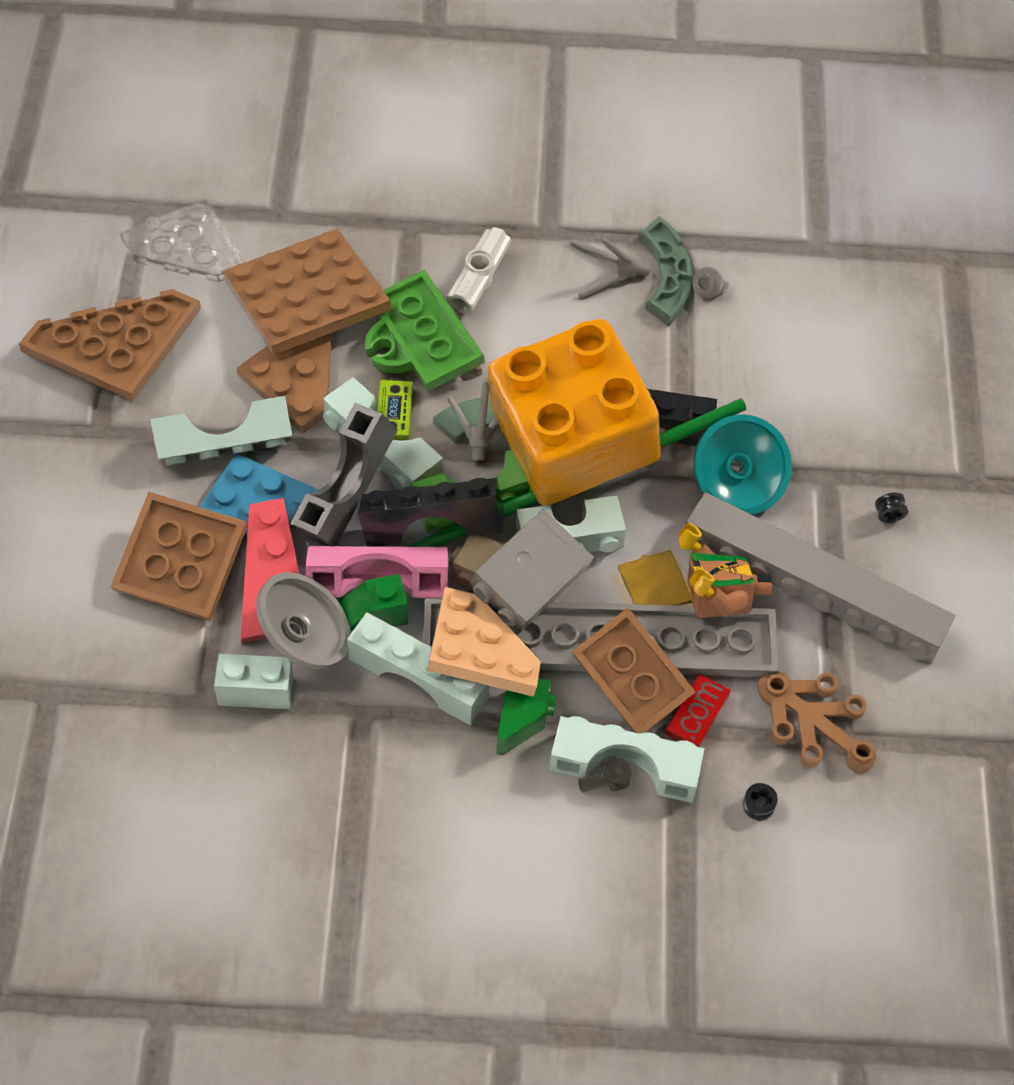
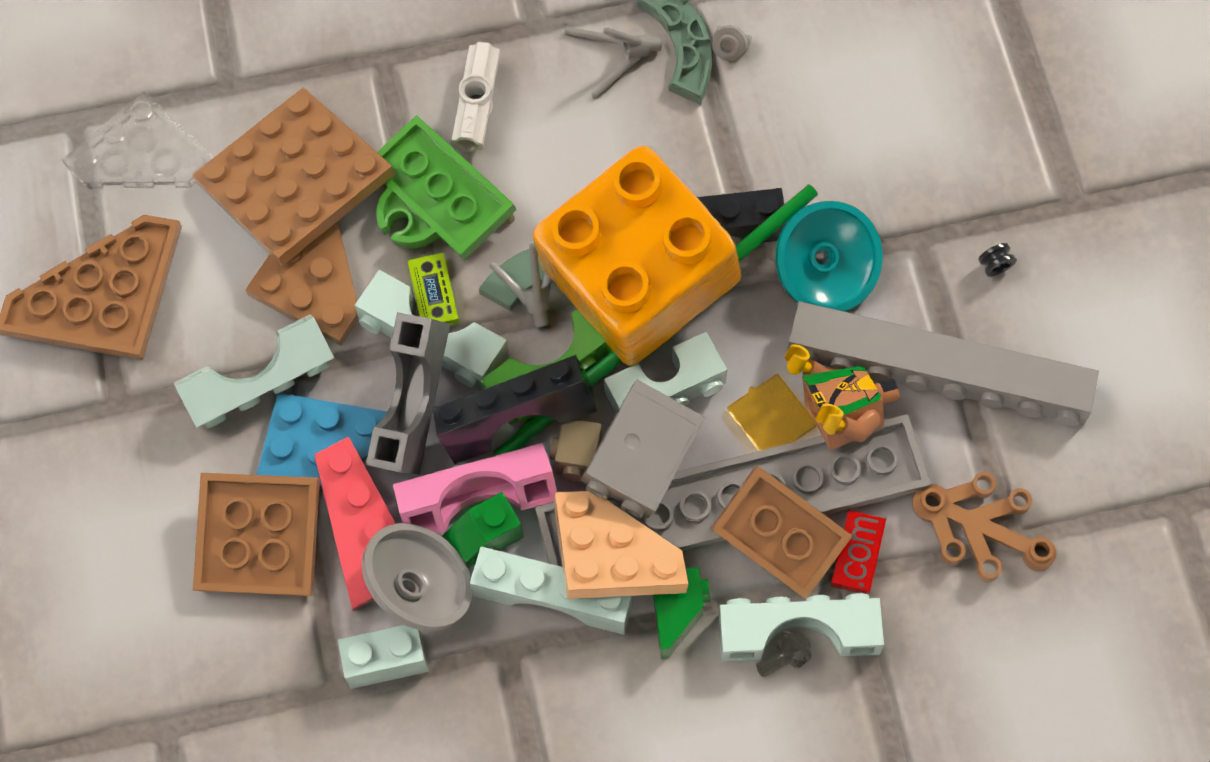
camera: 10 degrees left, 10 degrees up
(753, 793) = (941, 625): black bush -> none

